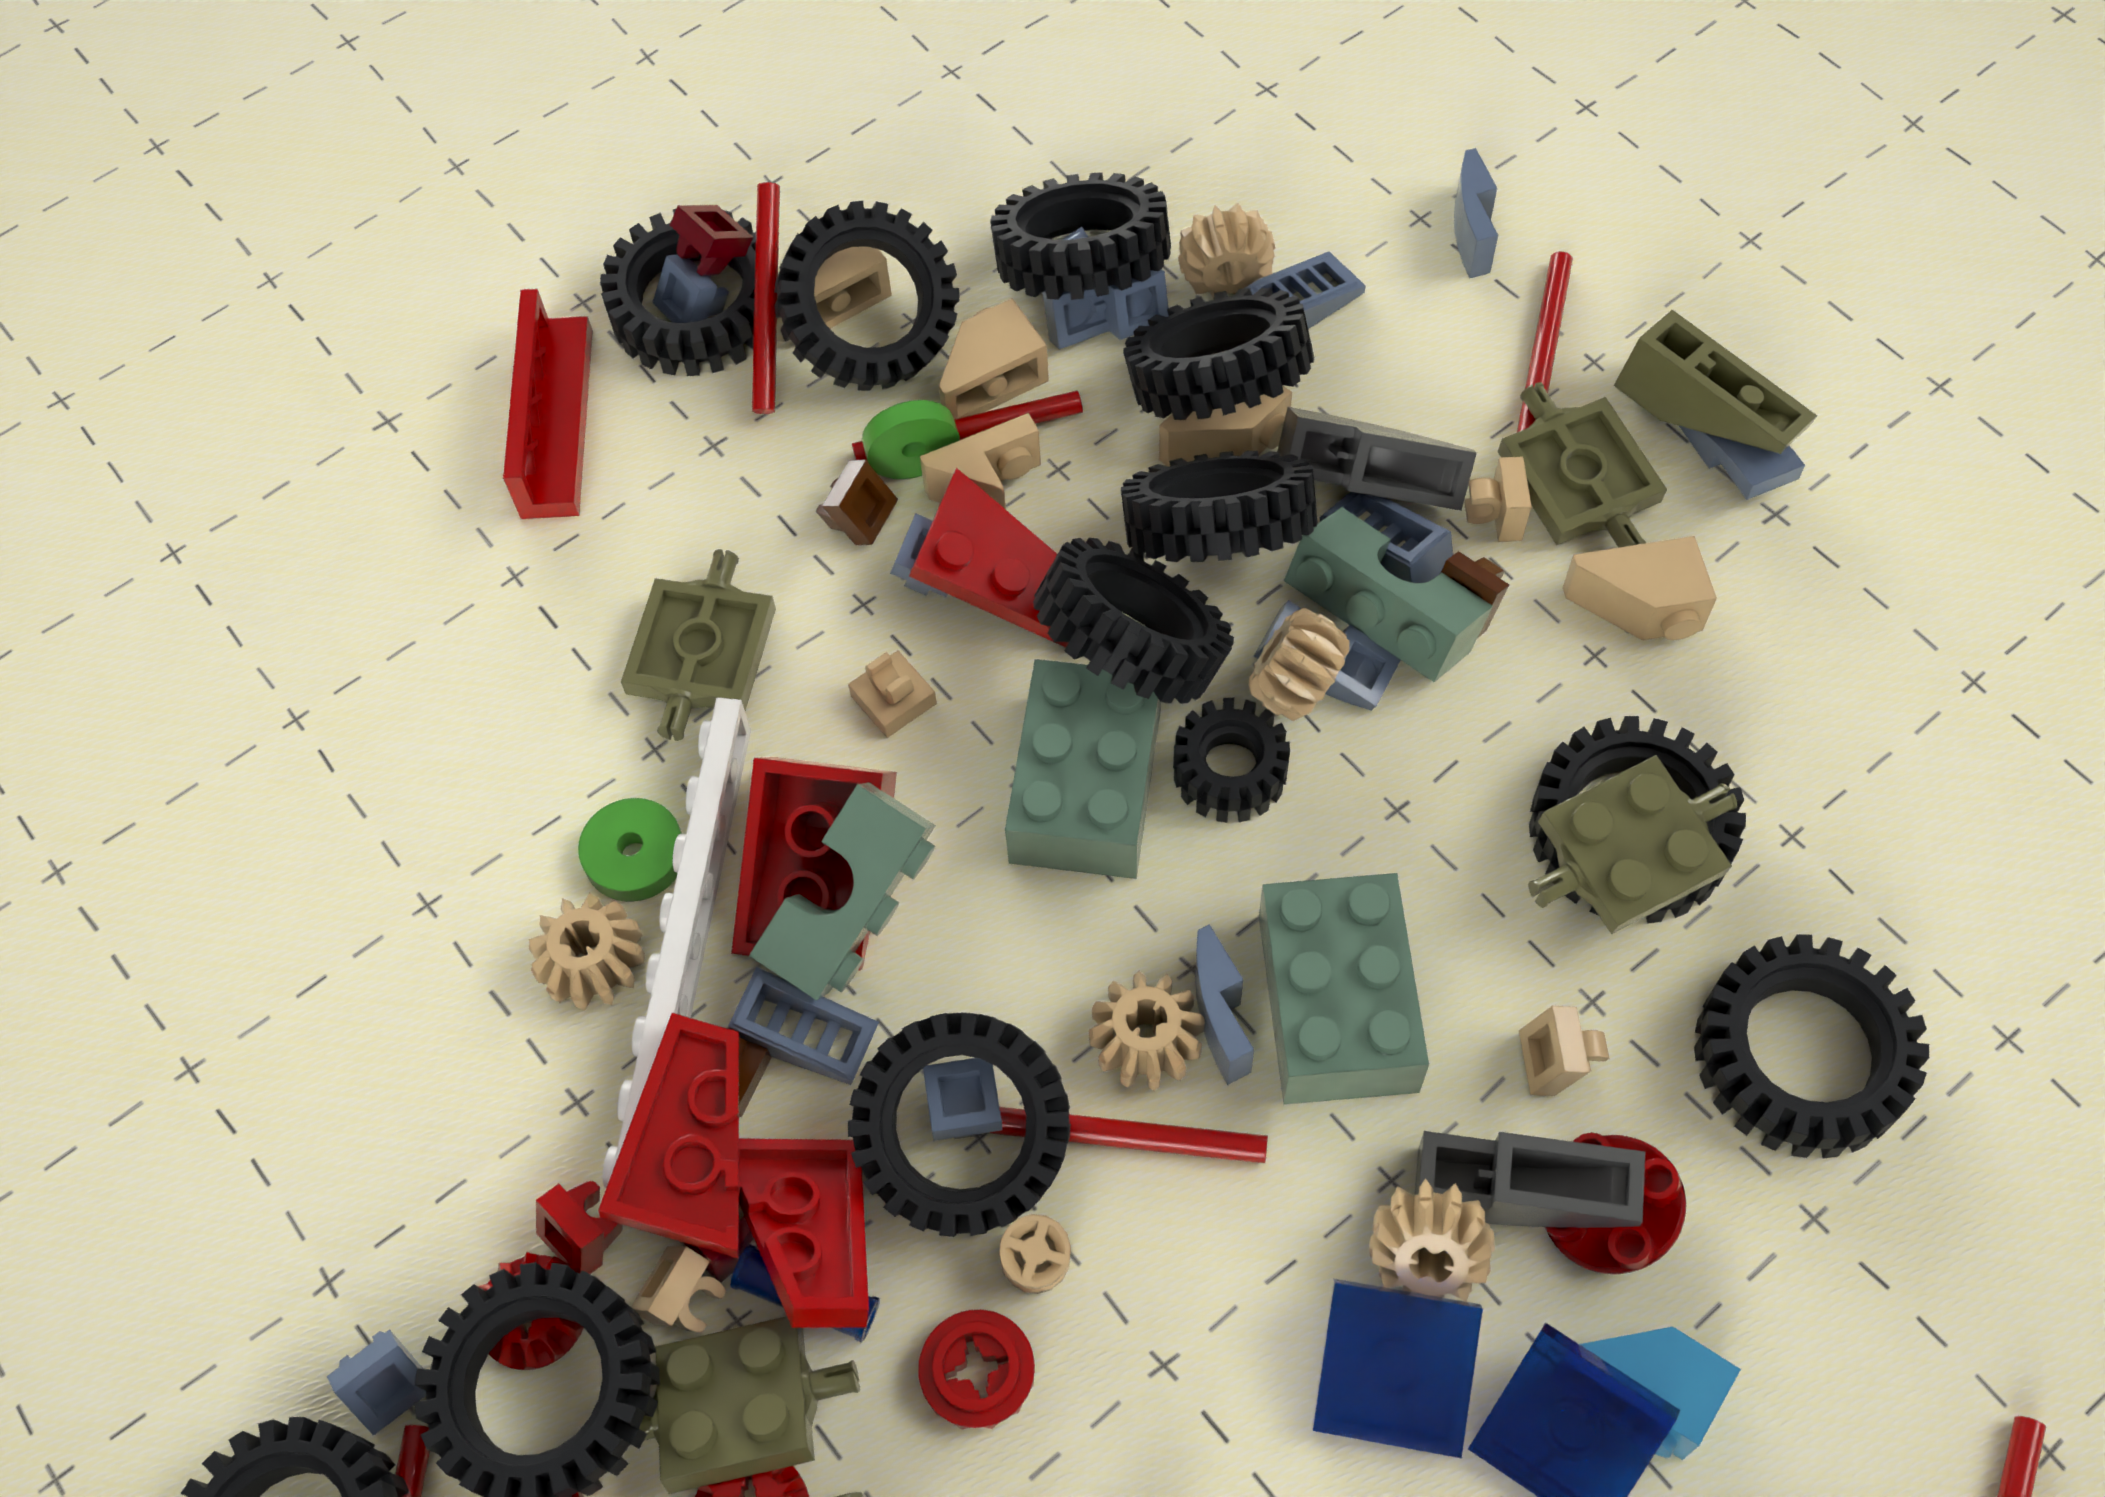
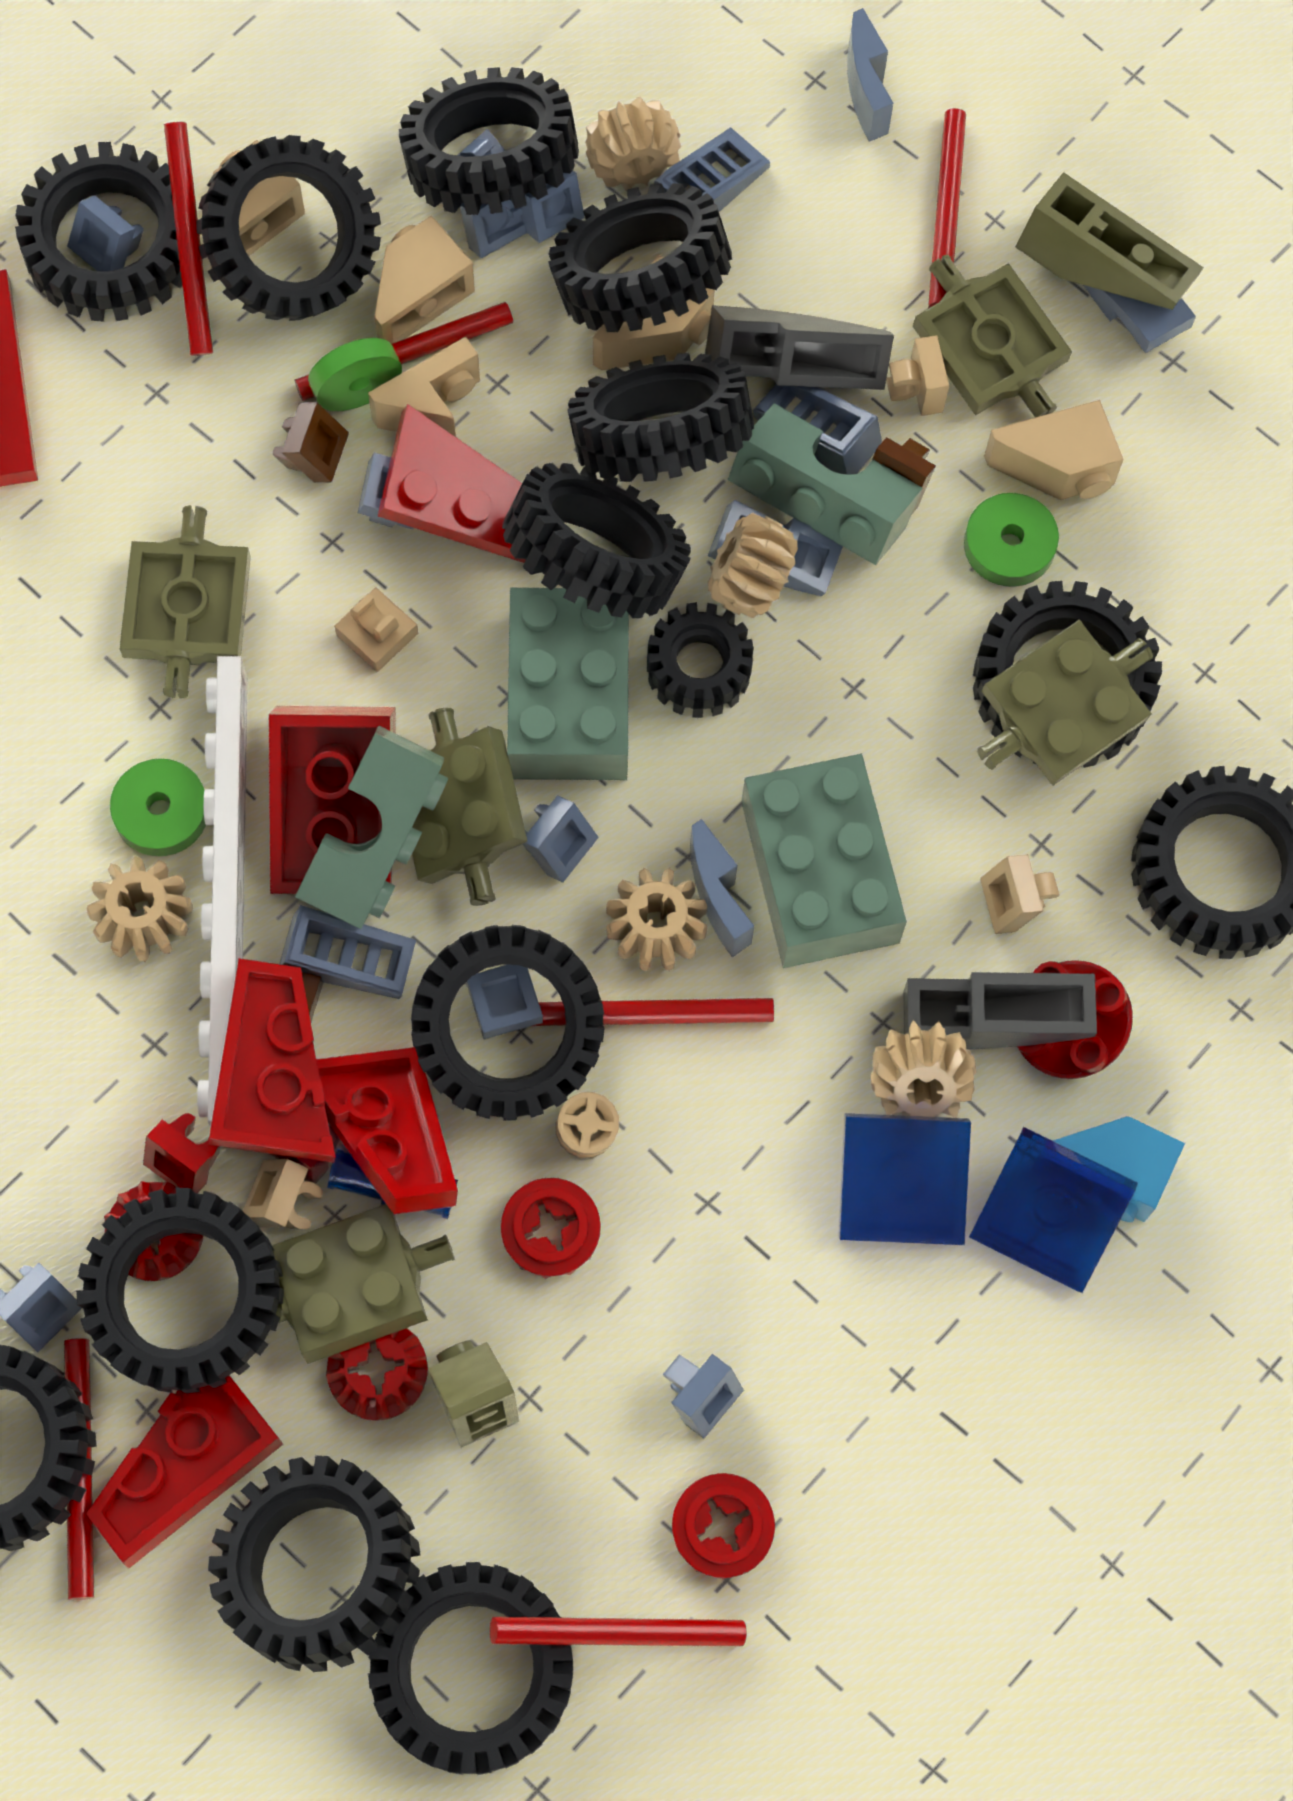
camera: 15 degrees left, 10 degrees up
(710, 233) = (121, 175): dark red tile -> none
(959, 890) = (475, 813): none -> olive plate
(1051, 929) = (559, 838): none -> sand blue tile
(1580, 697) = (1008, 563): none -> bright green piece

